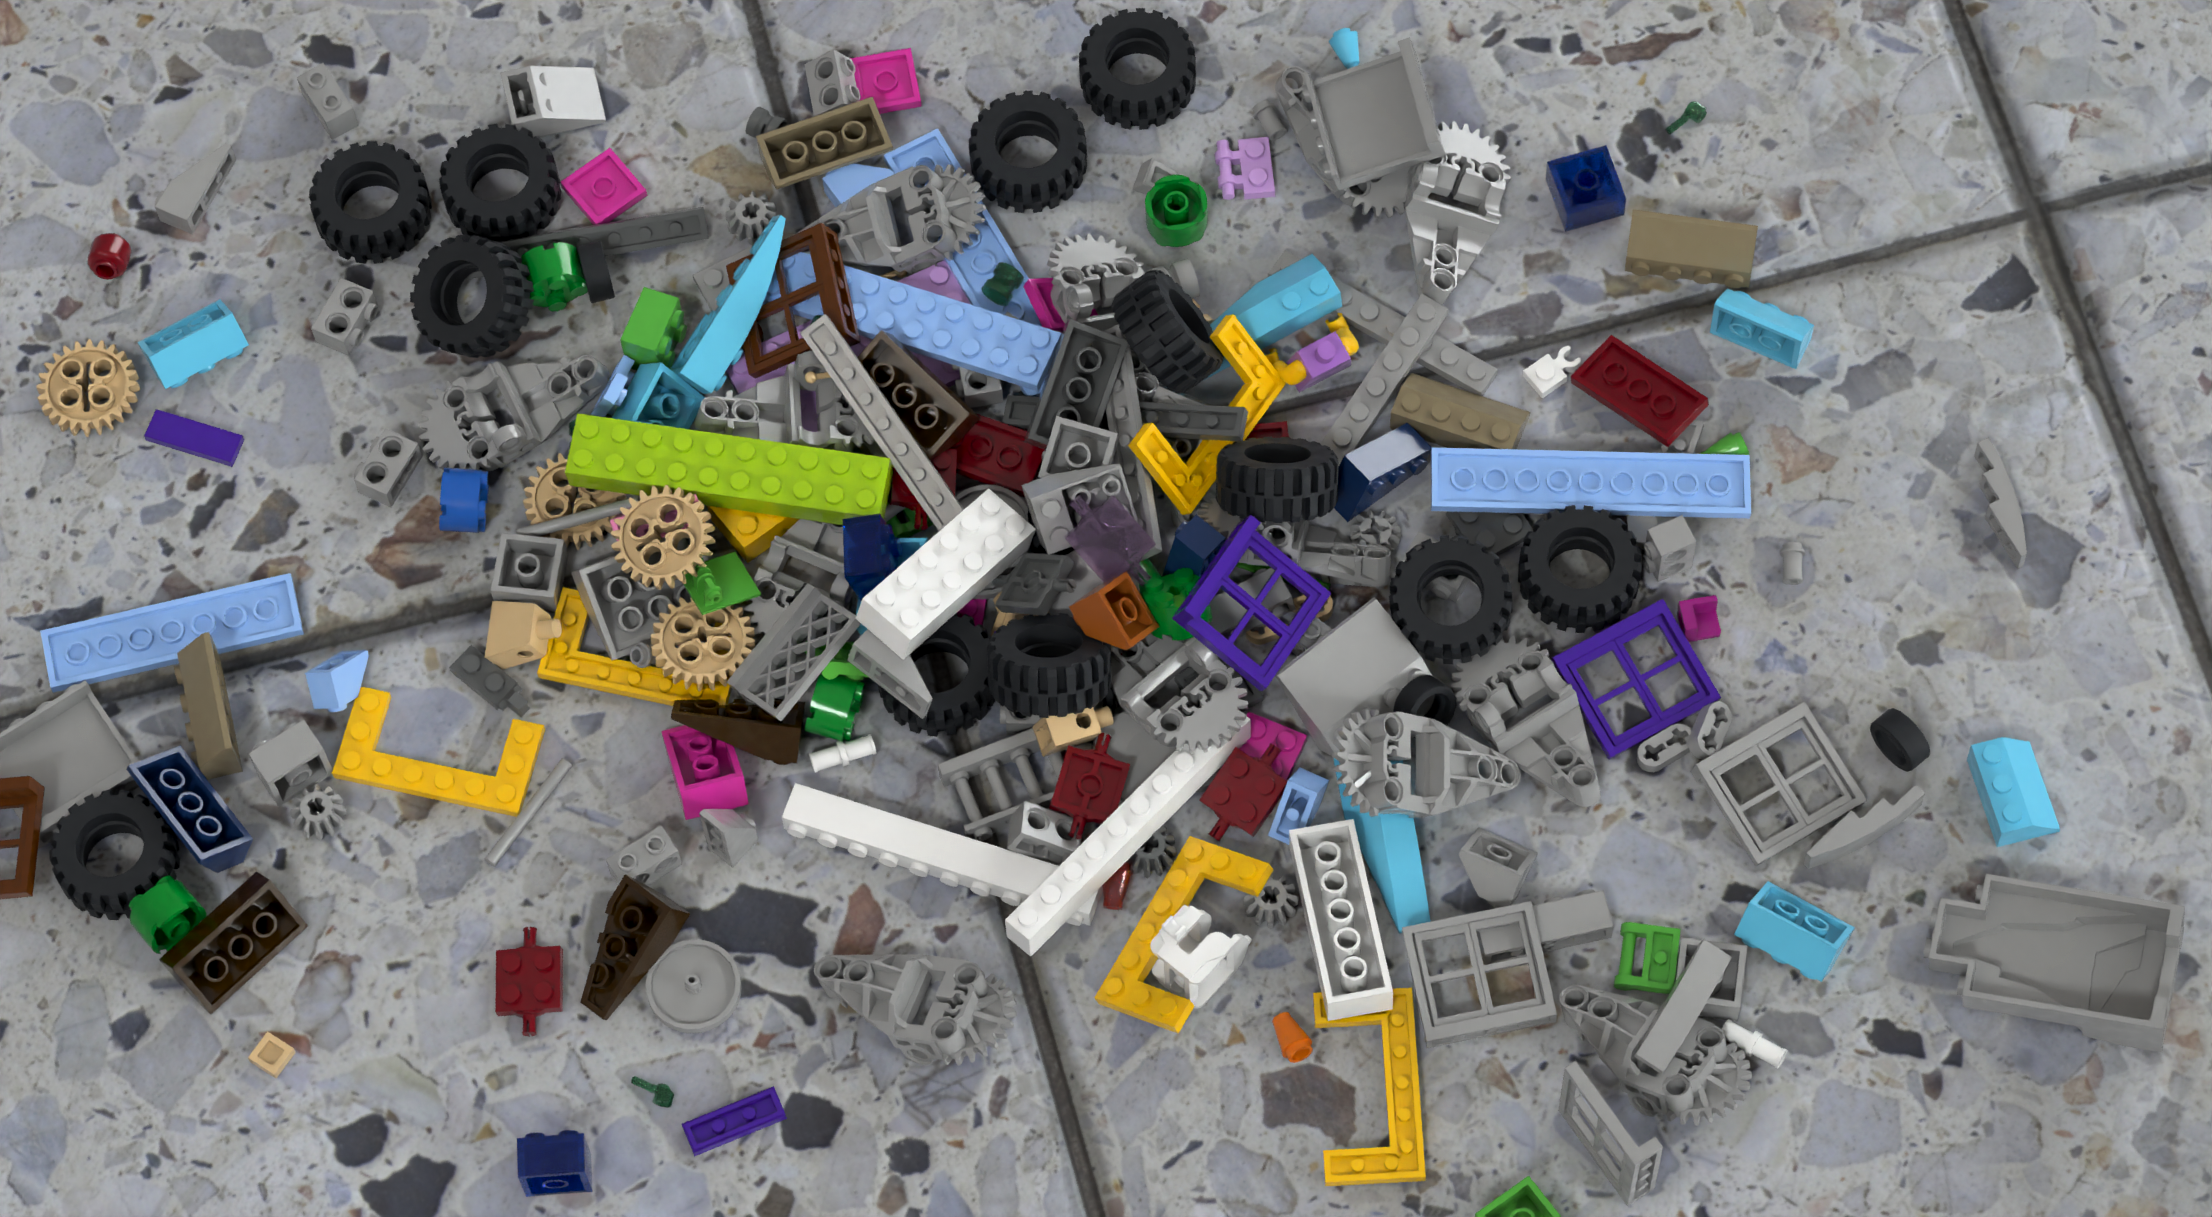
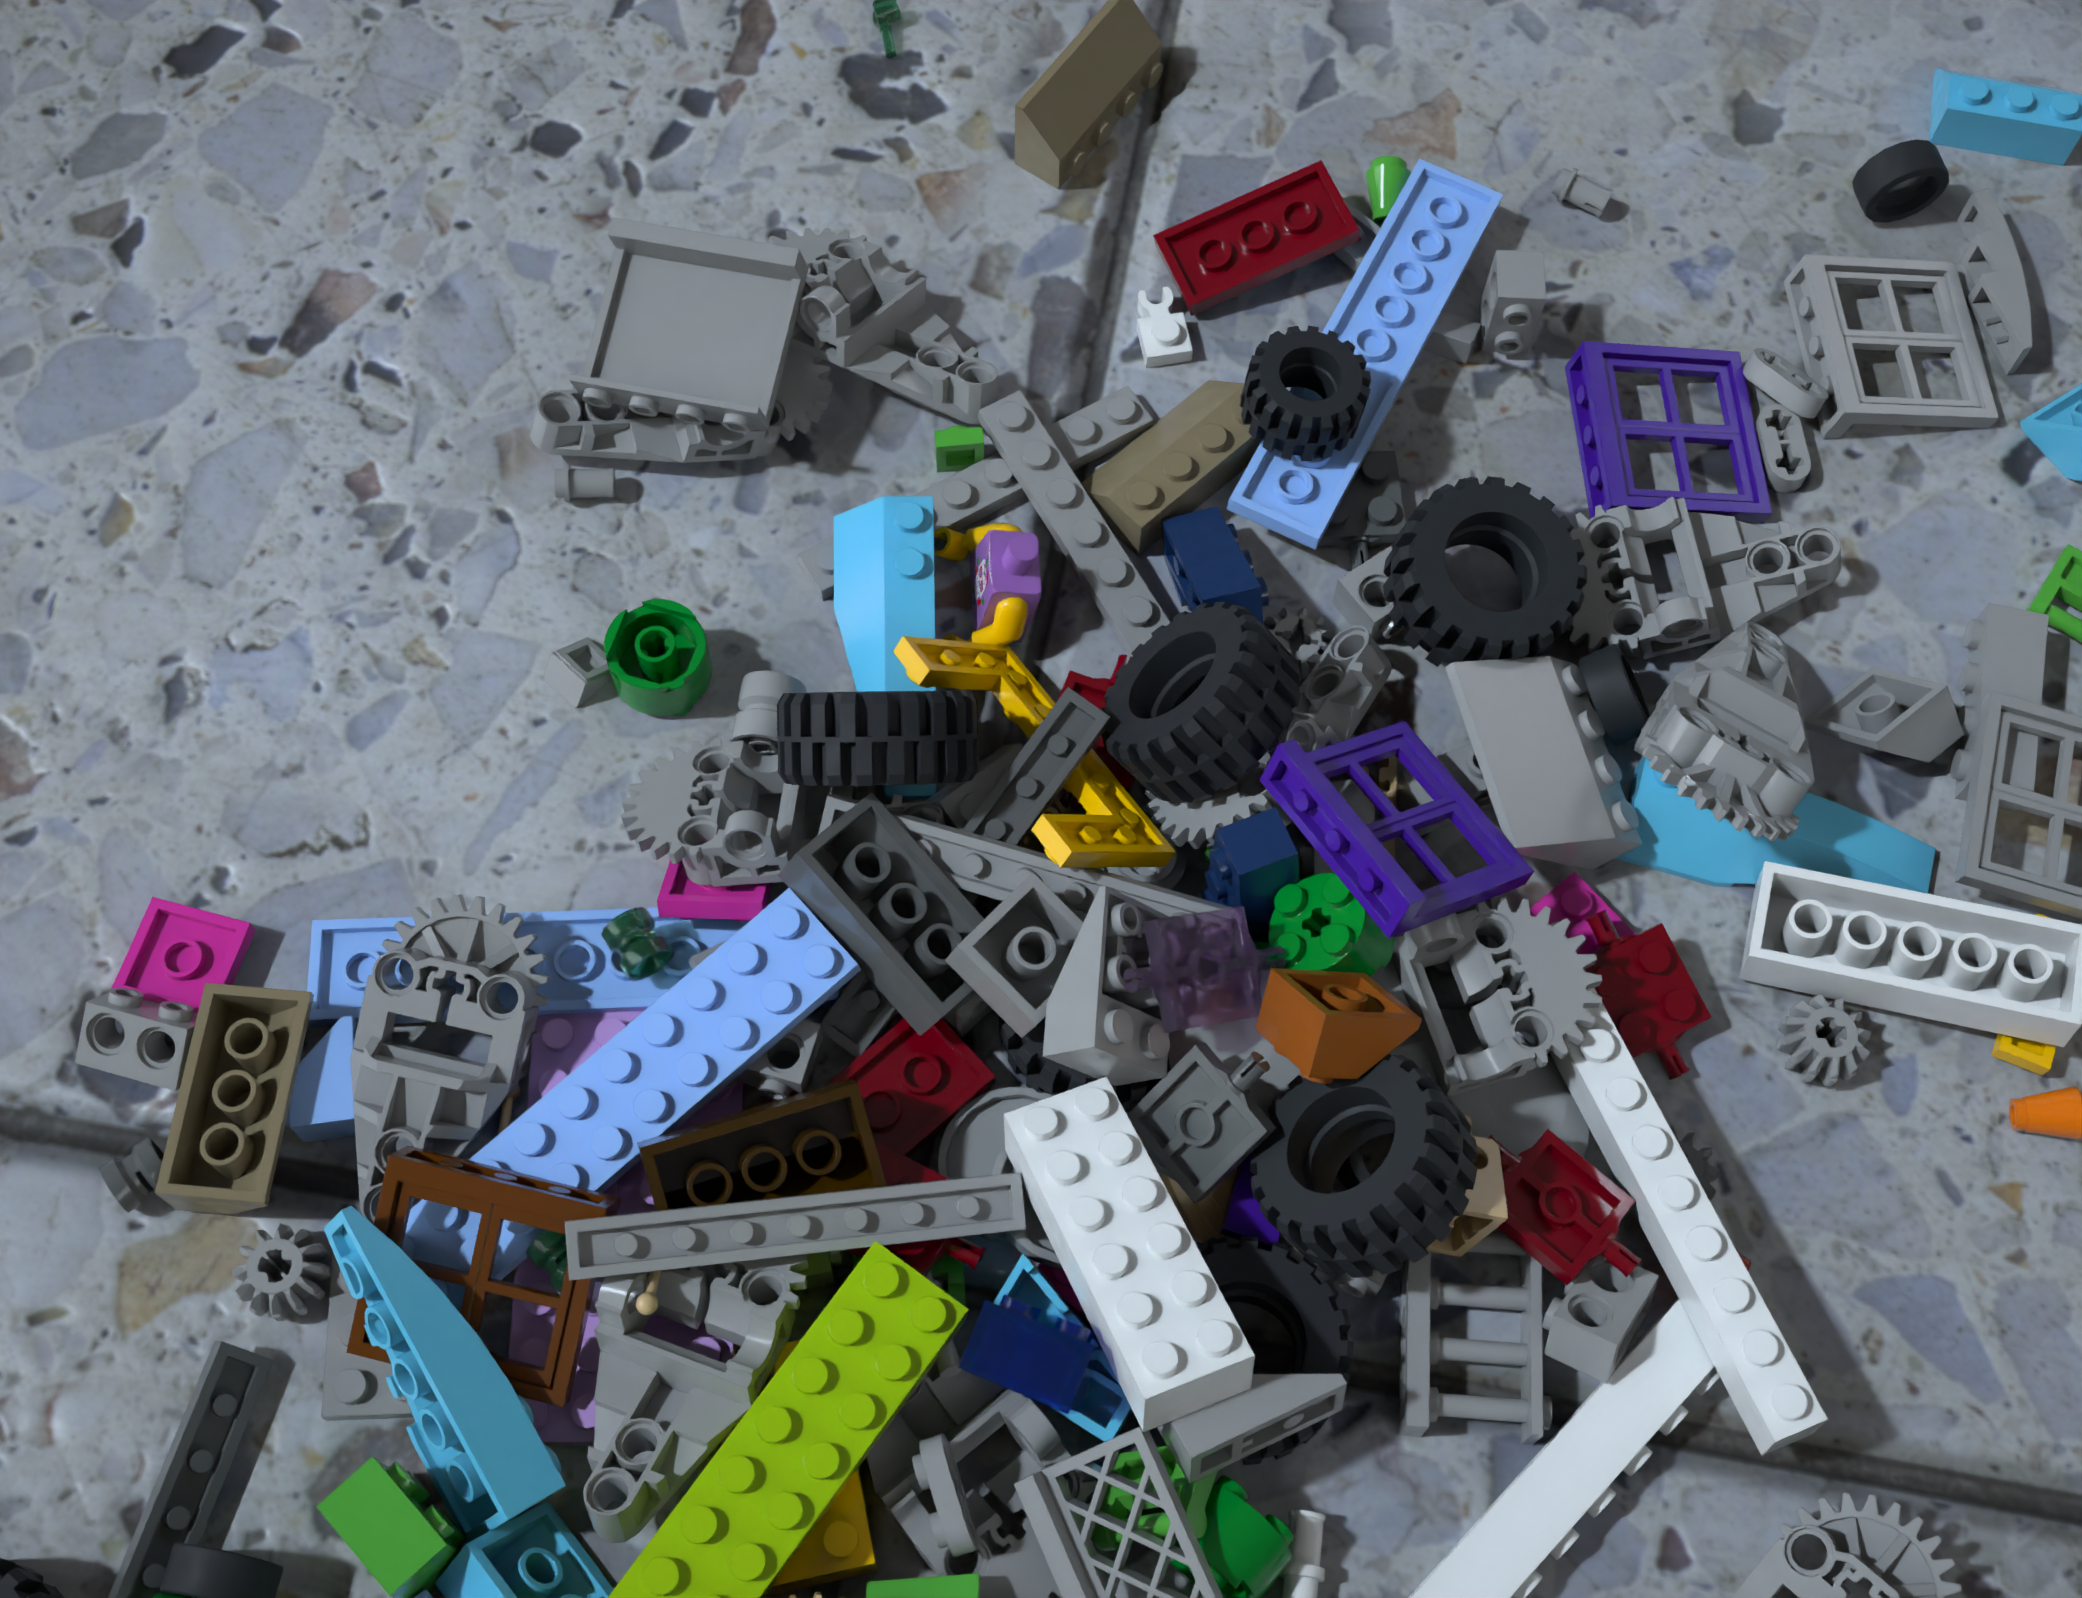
camera: 70 degrees left, 0 degrees up
(603, 188) = (73, 1492): dark pink plate -> none
(789, 559) = (953, 1520): none -> light grey plate
(1028, 117) = (416, 753): black tyre -> none
(1124, 984) = (1883, 1319): yellow plate -> none
(1136, 34) = (385, 550): black tyre -> none
(1191, 960) = (1899, 1183): white animal -> none
(1255, 166) = (643, 535): lavender plate -> none
(1298, 803) = (1693, 927): light blue slope -> none
(1346, 46) = (540, 342): medium azure cone -> none
(1399, 297) = (958, 448): none -> bright green plate
(1522, 429) = (1310, 362): none -> black tyre
(1585, 188) = (928, 163): clear blue brick -> none
(1588, 532) = (1498, 367): black tyre -> none
(1699, 618) = (1612, 323): magenta panel -> none
(1761, 327) = (1239, 71): medium azure slope -> none

